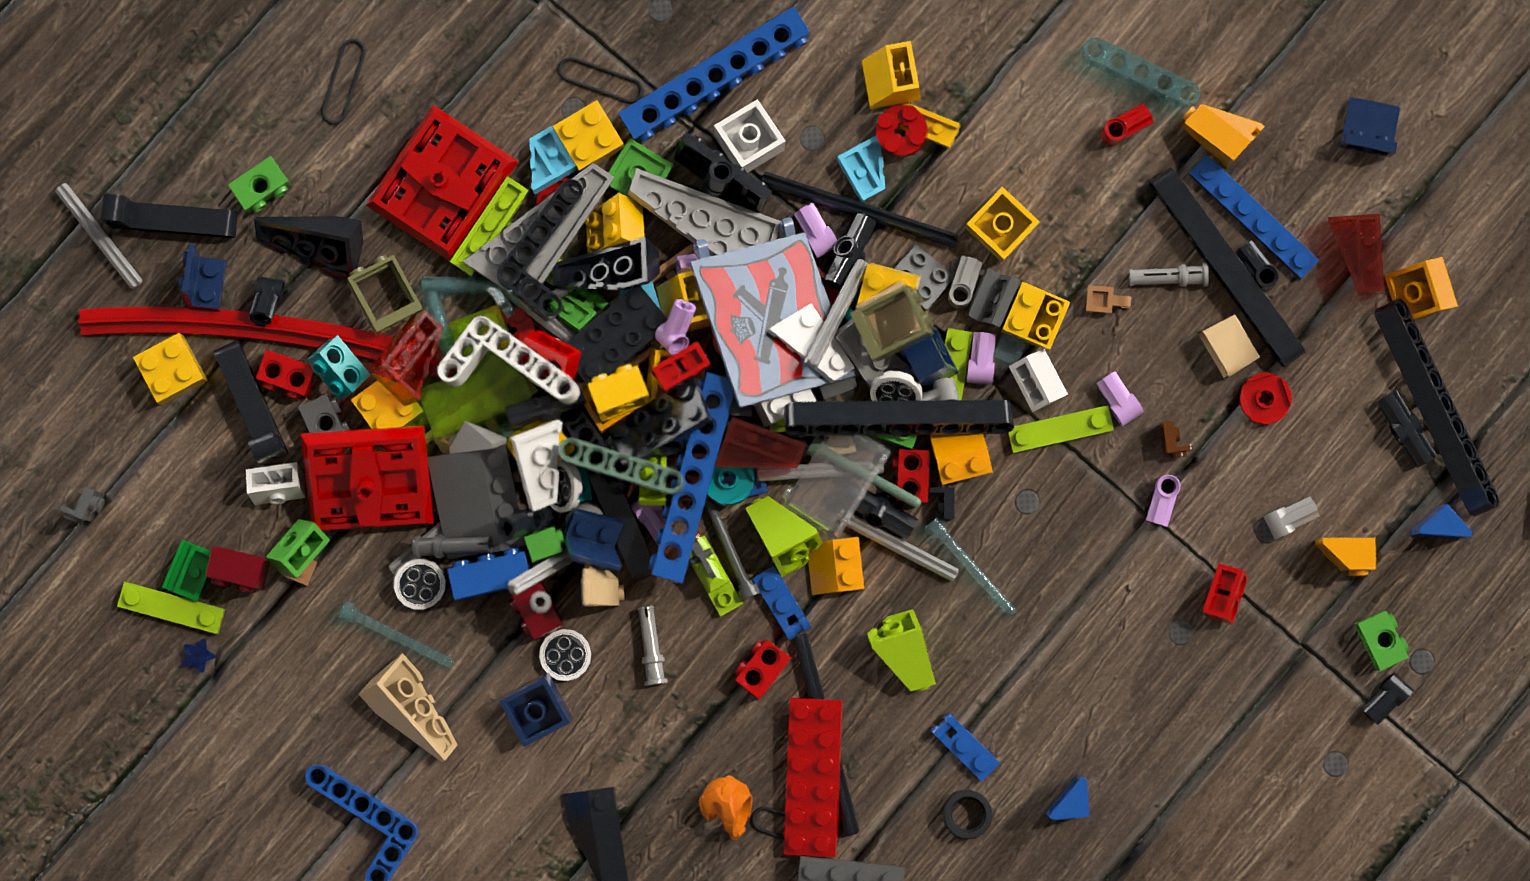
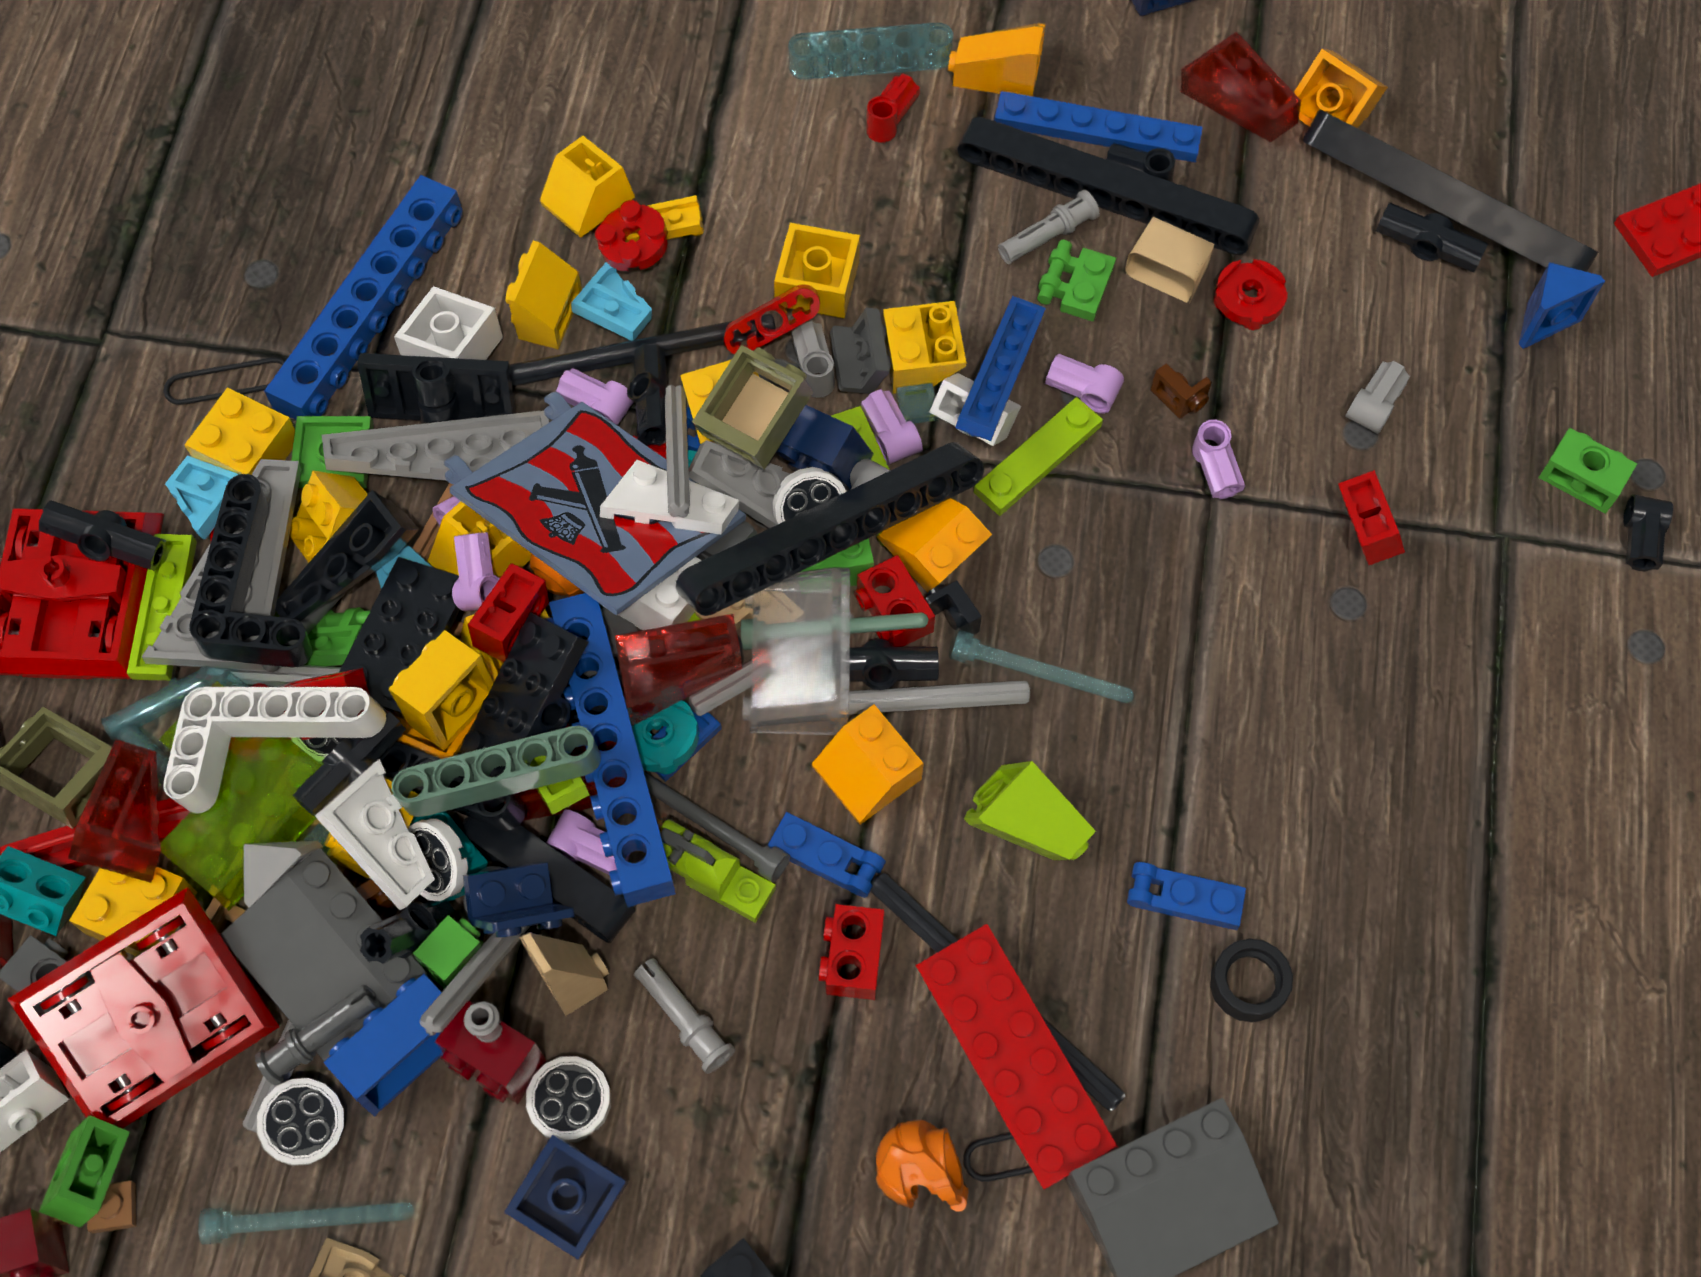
camera: 30 degrees left, 20 degrees down
(476, 170) = (102, 535): none -> black piece
(783, 534) = (775, 762): lime slope -> none
(822, 144) = (542, 296): none -> yellow slope
(962, 241) = (799, 314): none -> red beam
(1067, 367) = (1000, 369): none -> blue plate
(1072, 802) = (1376, 872): blue slope -> none
(1101, 300) = (992, 291): medium nougat plate -> none
(1167, 330) = (1088, 280): none -> bright green plate
(1350, 554) = (1477, 390): light orange slope -> none

